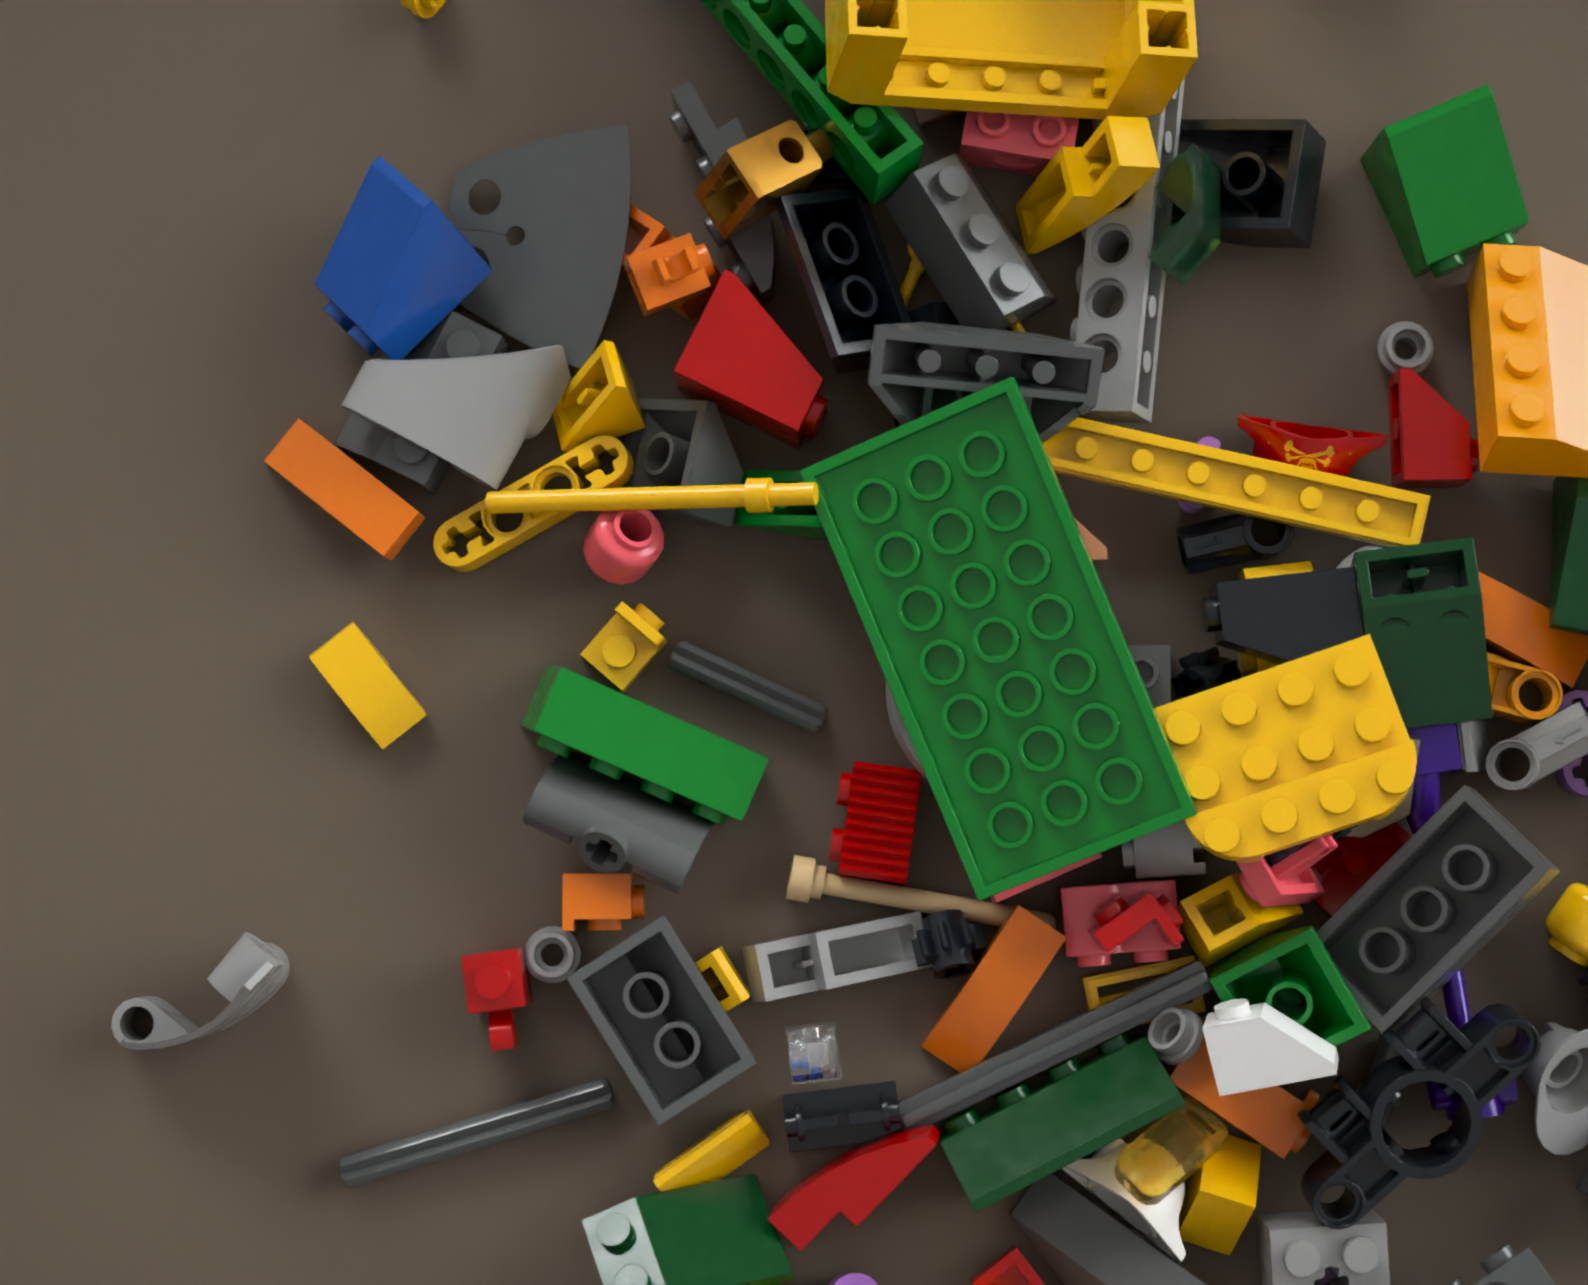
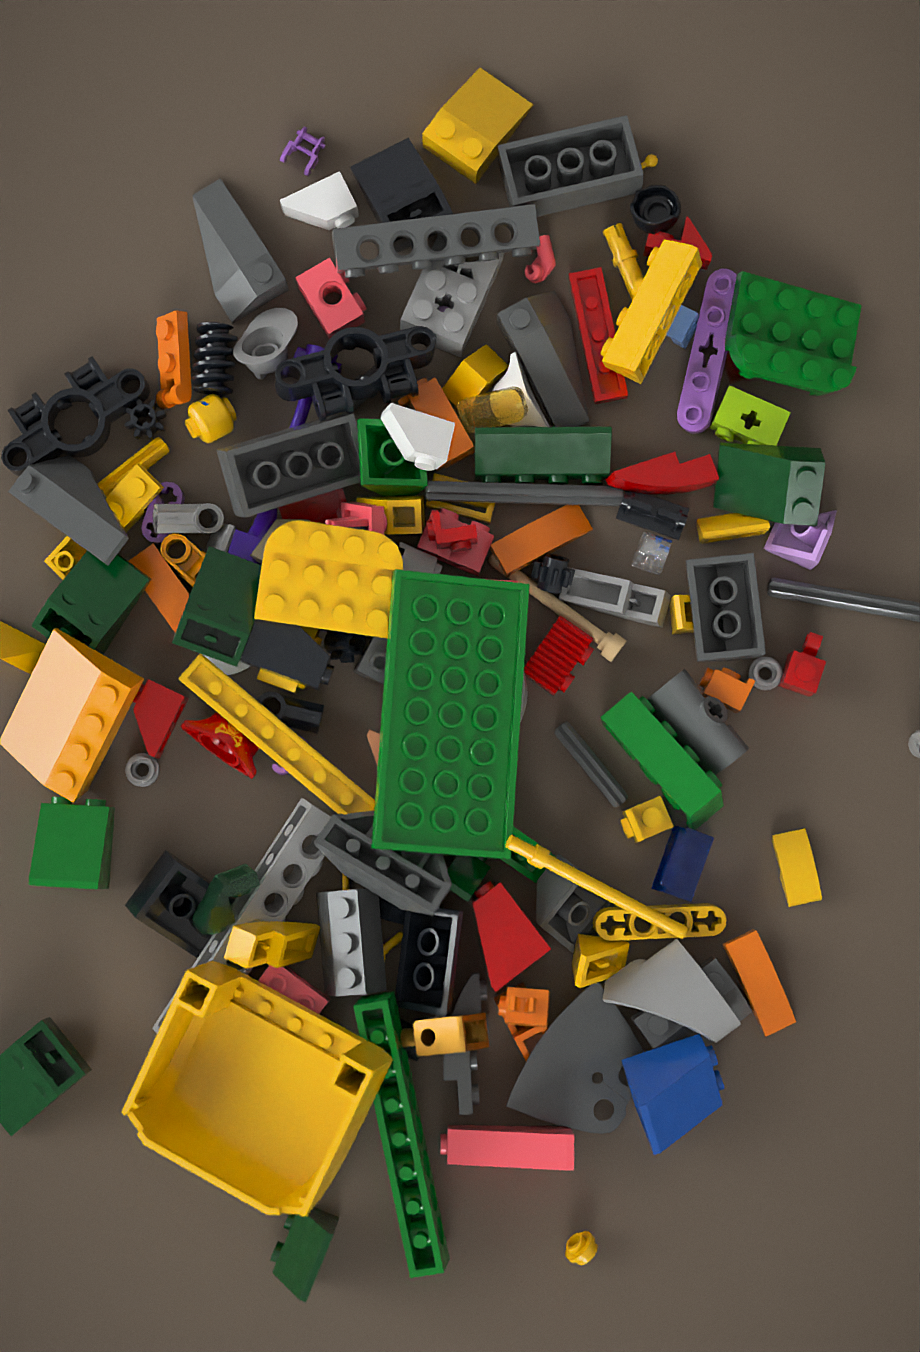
camera: 160 degrees left, 0 degrees up
(540, 605) = (682, 863): none -> clear blue window
(590, 1183) = (801, 542): none -> lavender slope
(594, 74) = (509, 1146): none -> coral slope
(623, 545) = (622, 872): coral head -> none
(852, 416) = (467, 874): none -> dark green slope
(1175, 1035) = (459, 467): light grey plate -> none
(1539, 1213) = (319, 282): none -> coral brick

